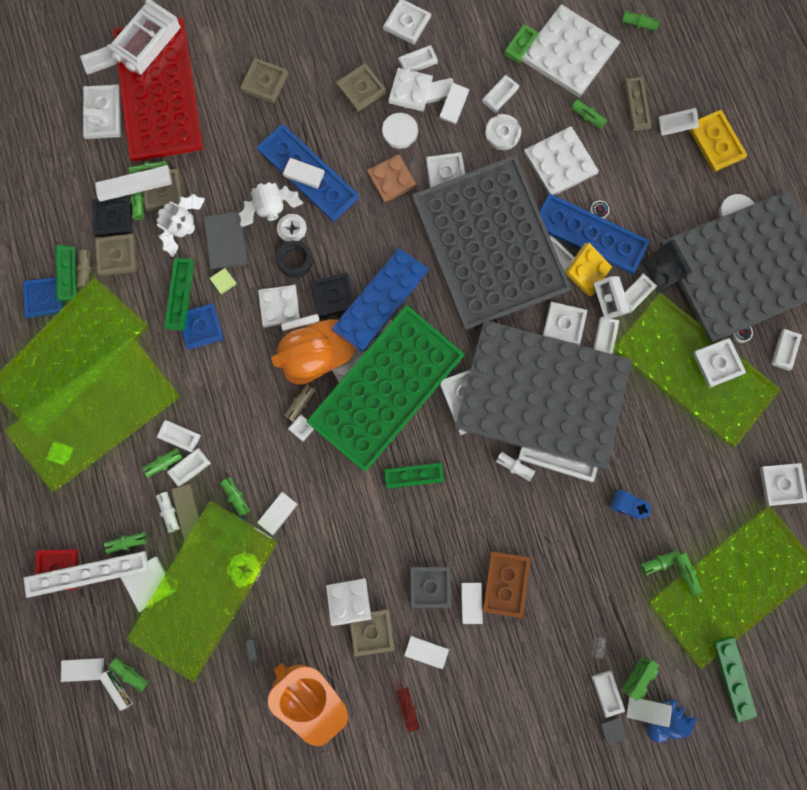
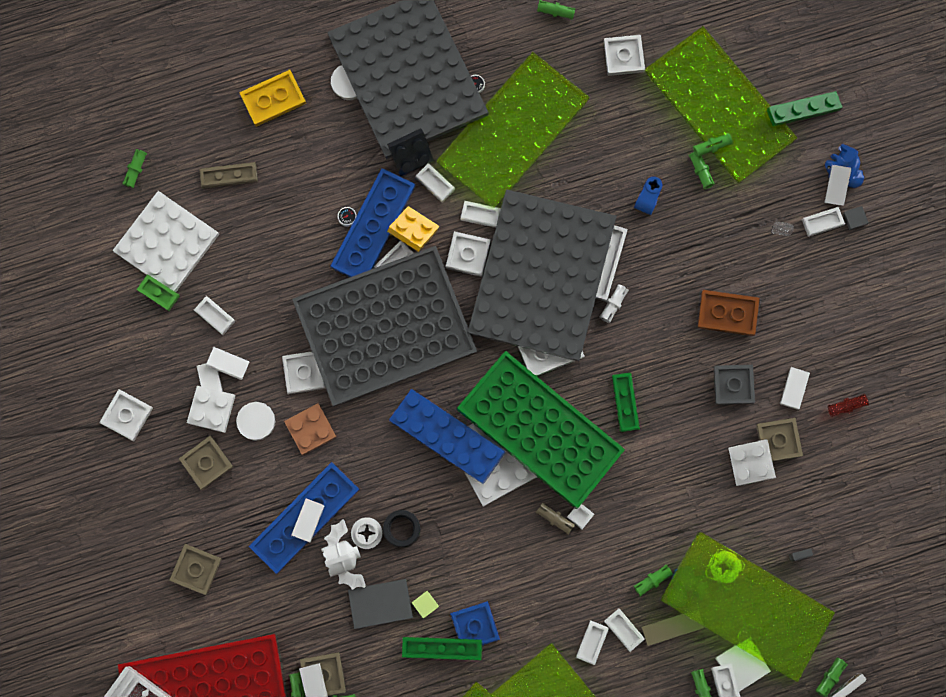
camera: 90 degrees left, 0 degrees up
(162, 462) = (620, 657): bright green pin -> none
(167, 512) = (671, 648): white pin -> none
(177, 221) = (362, 654): white helmet -> none
(277, 513) = (667, 537): white tile -> none
(279, 305) = (452, 543): white plate -> none
(299, 323) = (473, 518): white tile -> none
(307, 704) = (848, 498): orange piece -> none
(312, 352) = (503, 506): orange piece -> none
(333, 294) = (440, 486): black plate -> none
(418, 59) = (173, 403): white tile -> none
(471, 603) = (746, 346): white tile -> none
(503, 132) = (258, 313): white tile -> none
(560, 161) = (293, 254): white plate -> none
(599, 121) = (235, 230): bright green pin -> none
(612, 297) = (444, 206): white brick -> none
(639, 678) = (809, 192): bright green plate -> none
(679, 121) = (252, 134): white tile -> none
(719, 363) = (509, 107): white plate -> none
(786, 349) = (491, 44): white tile -> none

